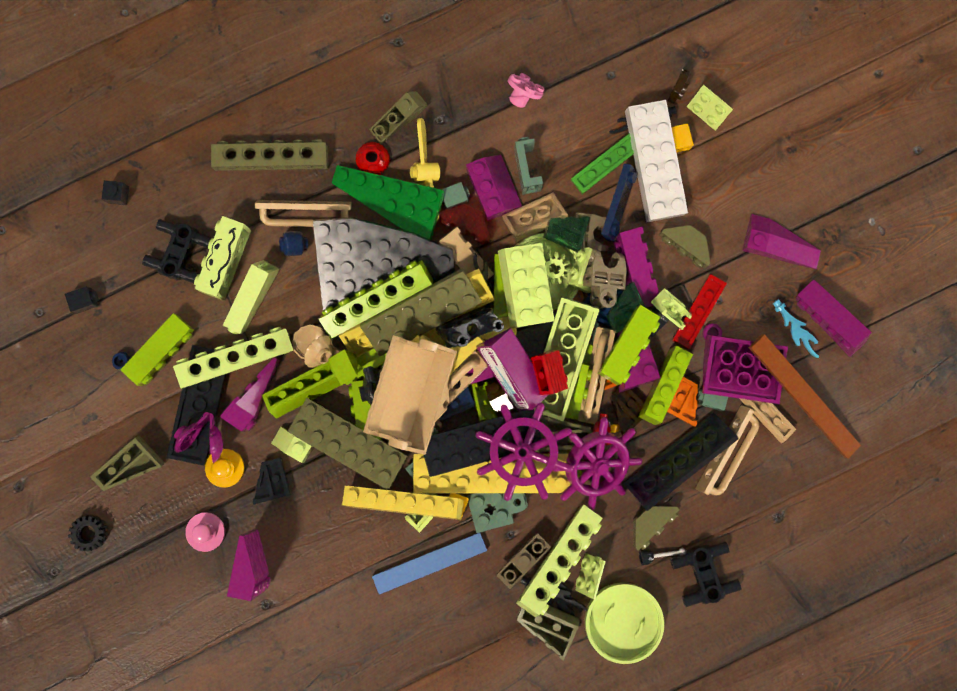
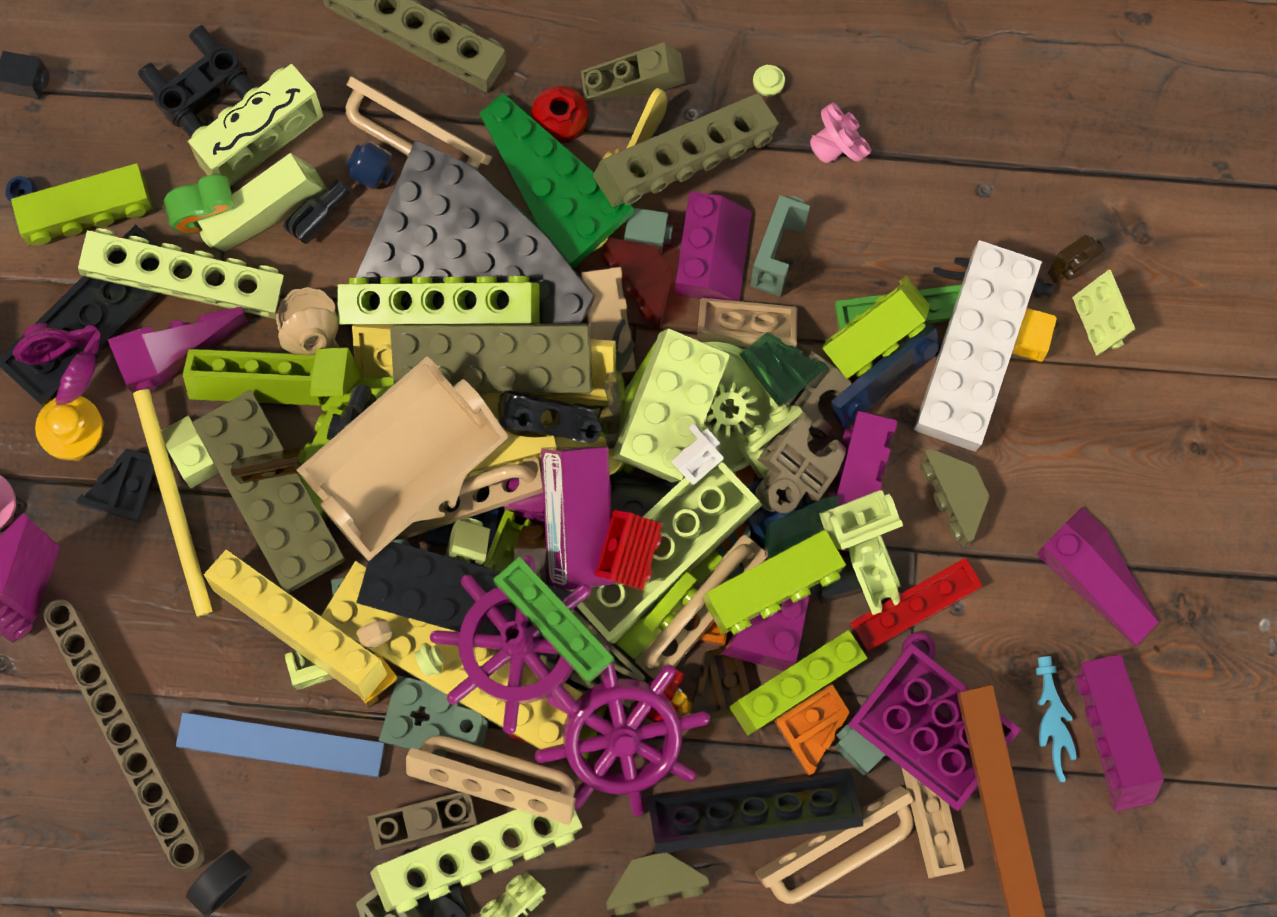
camera: 30 degrees right, 10 degrees down
(218, 316) = (196, 202): none -> bright green animal
(280, 285) = (315, 213): none -> black arm
(301, 476) = (172, 503): none -> light yellow piece
(341, 432) = (267, 465): none -> dark brown slope
(356, 612) = (110, 724): none -> dark tan beam
(443, 648) = (219, 882): none -> black tyre
(447, 487) = (374, 634): none -> tan tile
(464, 412) = (468, 541): none -> yellowish green slope
(469, 79) = (768, 80): none -> yellowish green plate
(471, 105) = (697, 137): none -> olive brick
(482, 483) = (430, 659): none -> yellowish green plate
(497, 304) = (613, 414): none -> clear smoke slope
(536, 432) = (553, 620): none -> bright green plate
(550, 526) = (557, 806): none -> tan piece
(558, 305) = (698, 457): none -> white bracket
(604, 182) = (878, 329): none -> lime wedge
(652, 288) = (861, 519): none -> yellowish green hinge

